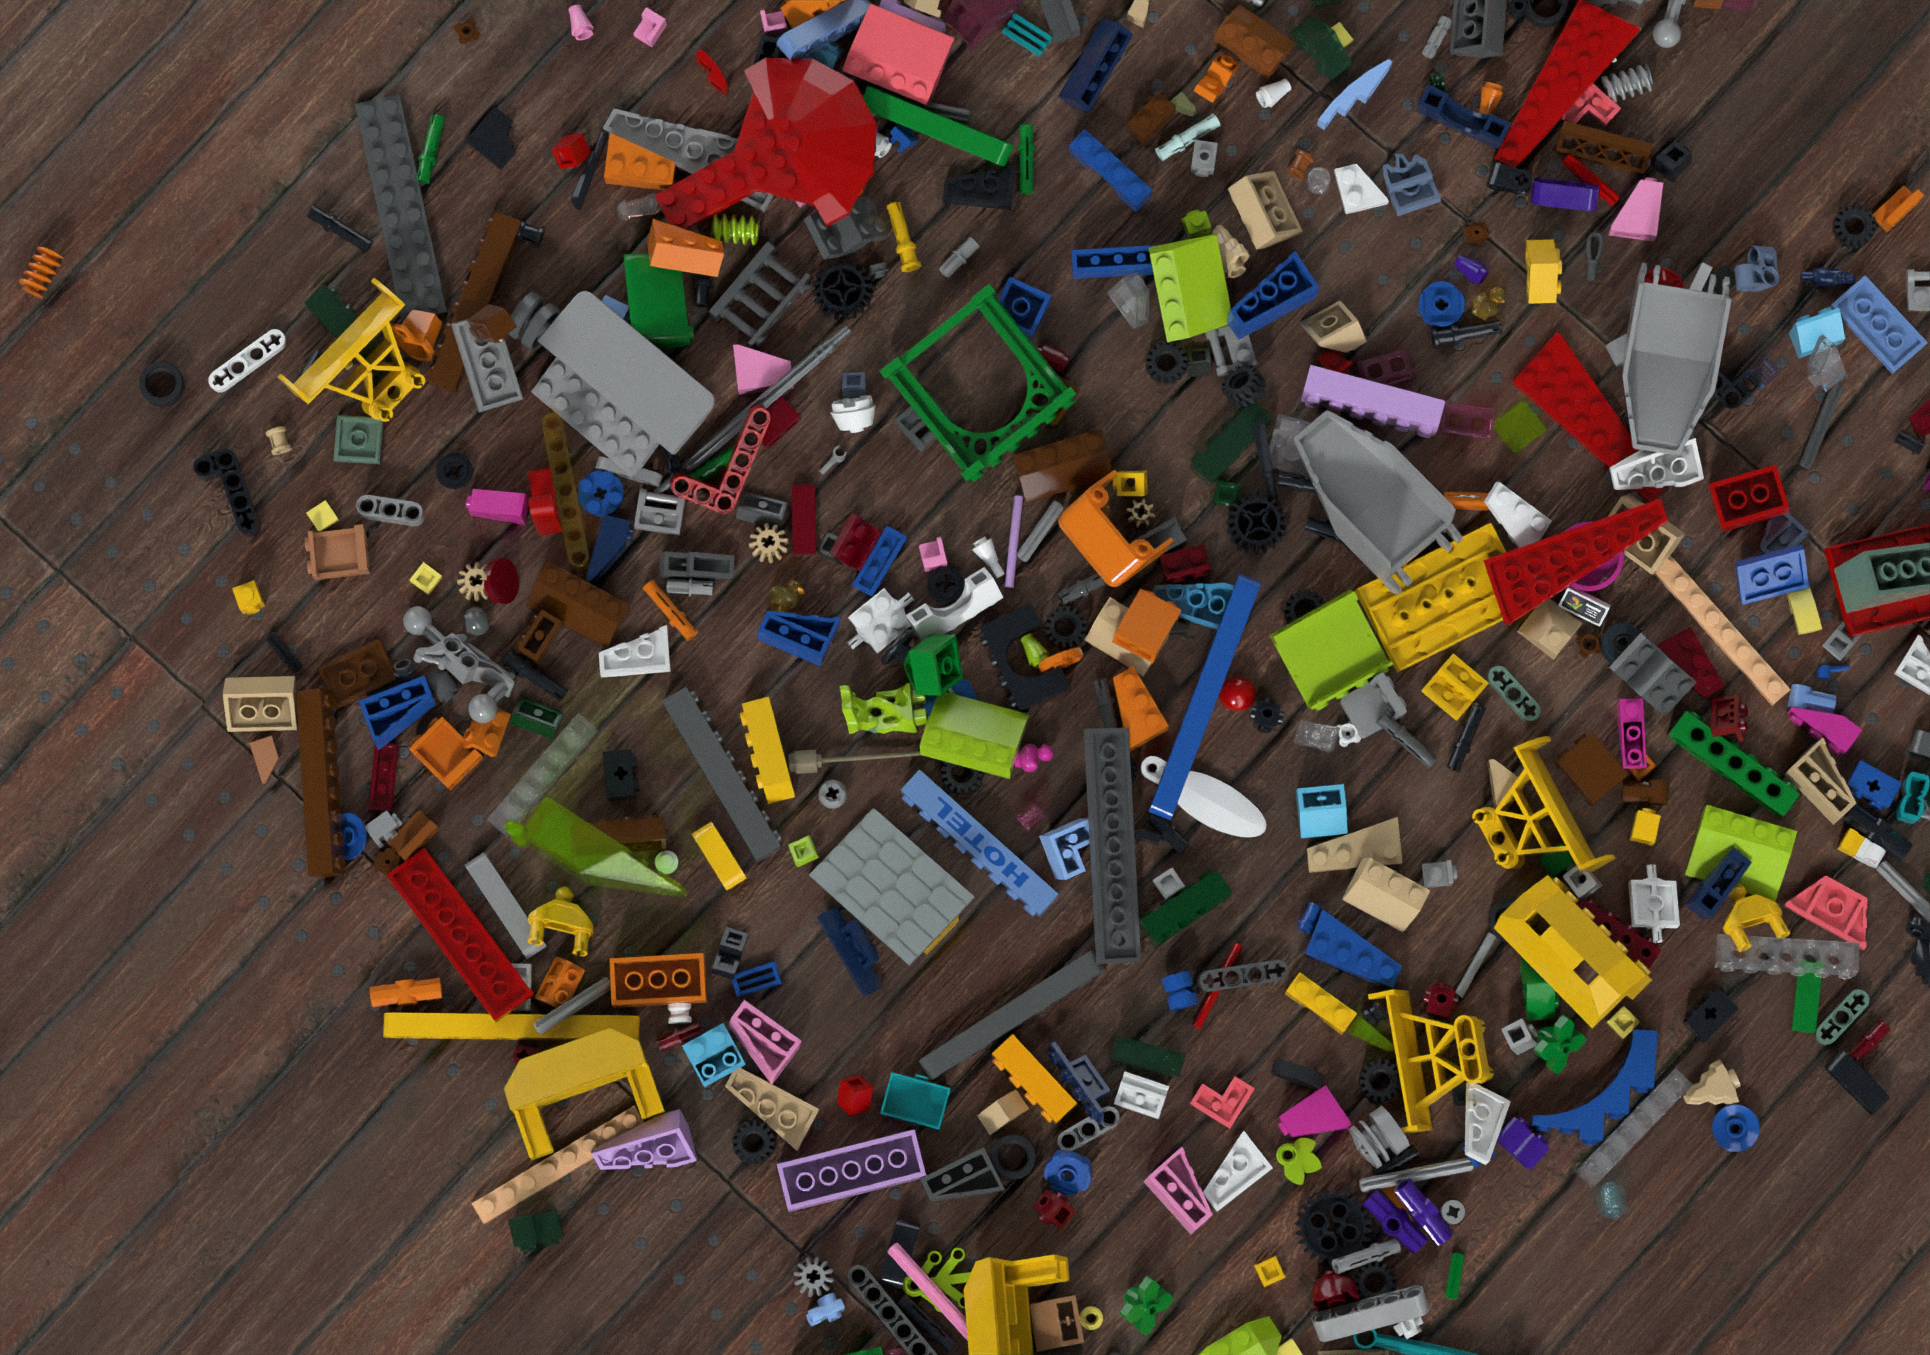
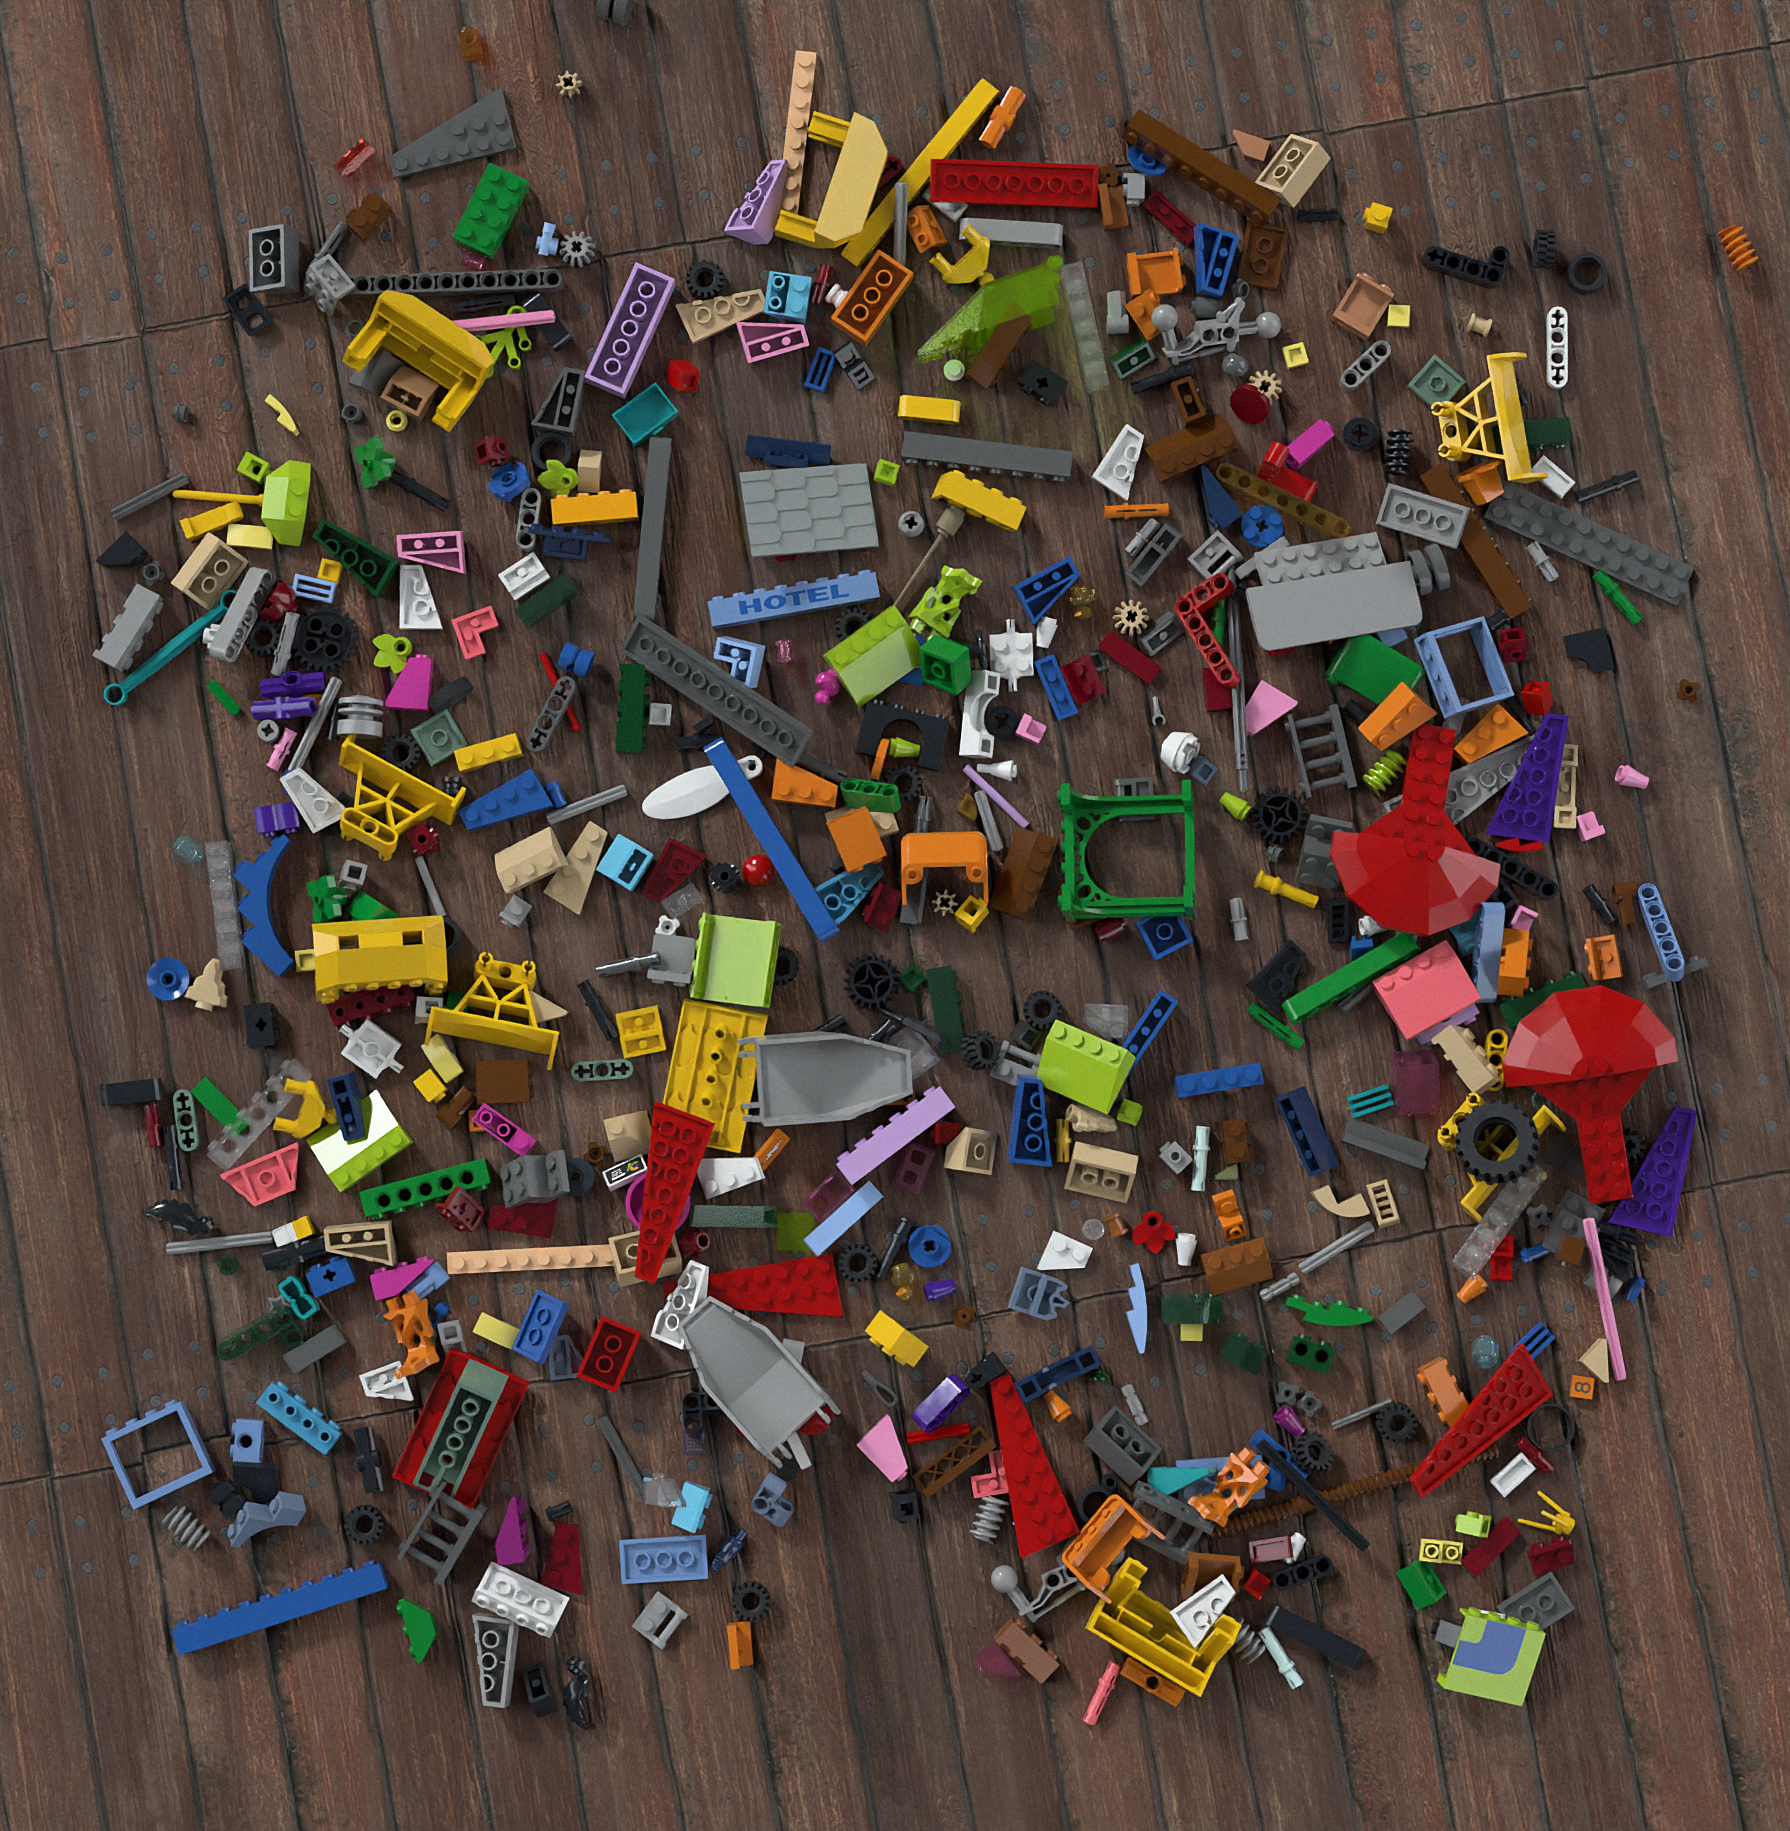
camera: 120 degrees right, 5 degrees up
(169, 433) = (1543, 249): none -> black tyre
(364, 290) = (1557, 480): none -> white tile
(446, 424) = (1397, 452): none -> black piece
(448, 233) = (1542, 561): none -> light grey axle
(491, 324) = (1445, 531): reddish brown brick -> none
(511, 755) = (1117, 318): none -> light grey piece
(535, 1230) = (763, 79): clear green brick -> none
(542, 203) = (1513, 645): none -> dark red brick
(619, 240) = (1439, 674): none -> medium blue window
(631, 72) = (1565, 810): none -> tan slope
(660, 93) = (1531, 795): none -> dark purple wing
(736, 54) = (1520, 871): none -> black beam
(837, 606) = (1045, 630): none -> white cone
(863, 332) = (1236, 806): none -> lime cone
(879, 179) = (1345, 919): none -> black slope
(1032, 1130) = (556, 478): none -> lime plate
(1042, 557) = (968, 807): none -> pearl gold tile
(1098, 643) = (871, 794): none -> green beam
(1137, 1246) = (422, 492): none -> black pin
(1238, 1254) = (365, 561): none -> dark green wedge
(1264, 262) = (1062, 1141): none -> yellow pin
(1283, 128) = (1153, 1235): none -> red plate
(1296, 768) = (671, 869): none -> dark red wing
(1296, 885) = (586, 804): none -> light grey axle
(1305, 1292) = (331, 593): none -> light blue tile
(1341, 1059) = (439, 738): none -> sand green tile
(1365, 1032) = (442, 769): clear neon green slope -> none
(1459, 1189) = (281, 749): none -> bright pink pin
(1477, 393) = (843, 1218): none -> light blue slope
(1503, 339) = (848, 1253): none -> black tyre
(1548, 485) = (732, 1216): none -> clear green slope
(1597, 501) = (693, 1242): none -> dark red rock
(1614, 835) = (442, 1059): none -> light yellow slope
(1849, 685) = (416, 1322): none -> orange hips
(1877, 1007) = (173, 1157): none -> black pin

